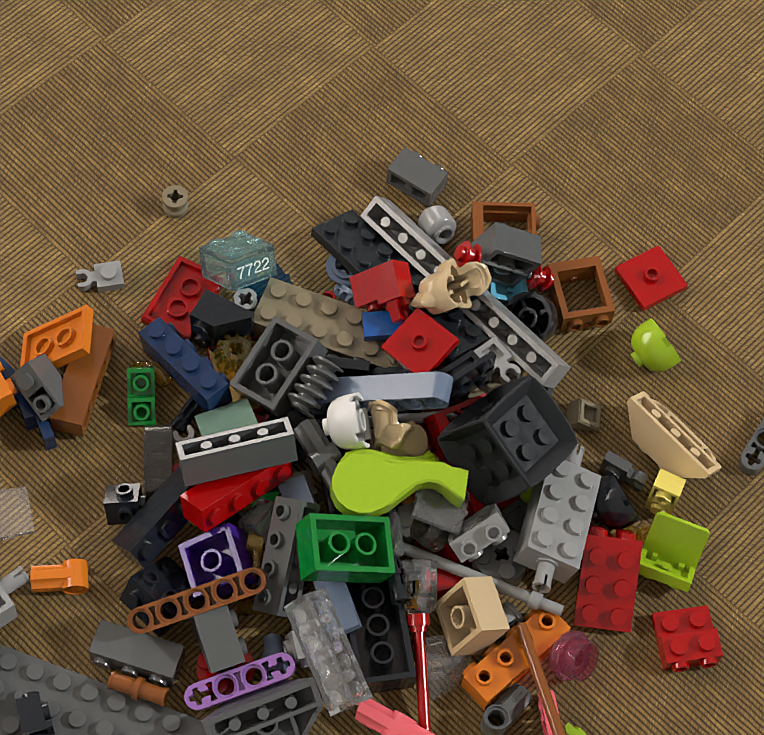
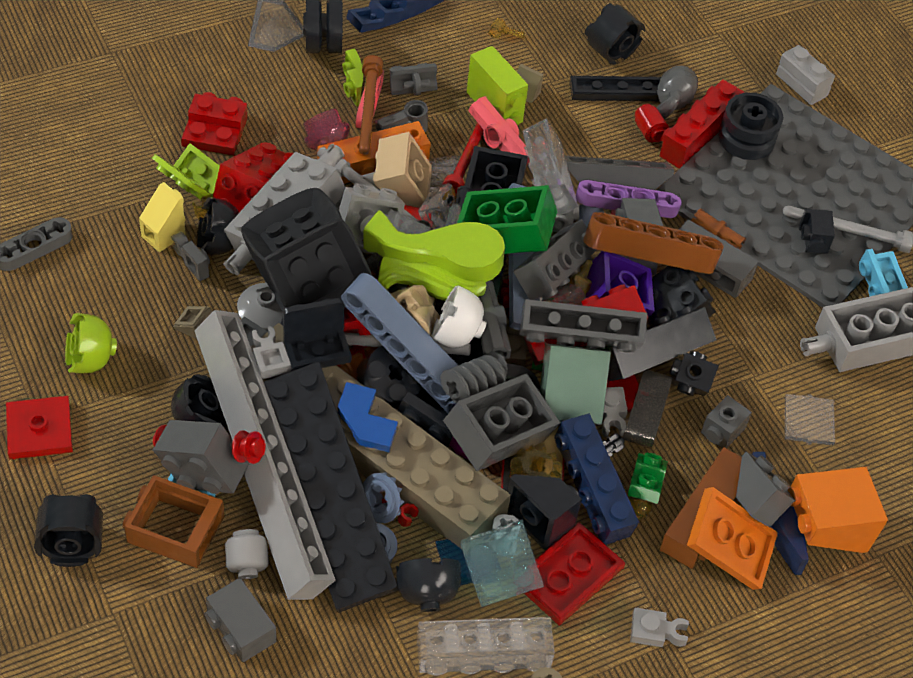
camera: 160 degrees left, 10 degrees down
(67, 577) = (761, 338): orange piece -> none
(84, 470) = (726, 422): none -> dark grey brick
(235, 212) = (485, 645): none -> clear brick
(292, 240) = (428, 582): none -> black cylinder
(384, 286) = (356, 453): red hinge -> none
(420, 343) = (346, 382): red plate -> none
(452, 286) = (294, 419): tan head -> none
(573, 191) = (69, 529): none -> black brick
(575, 271) = (124, 453): dark orange window -> none
(668, 439) = (124, 256): tan wedge -> none

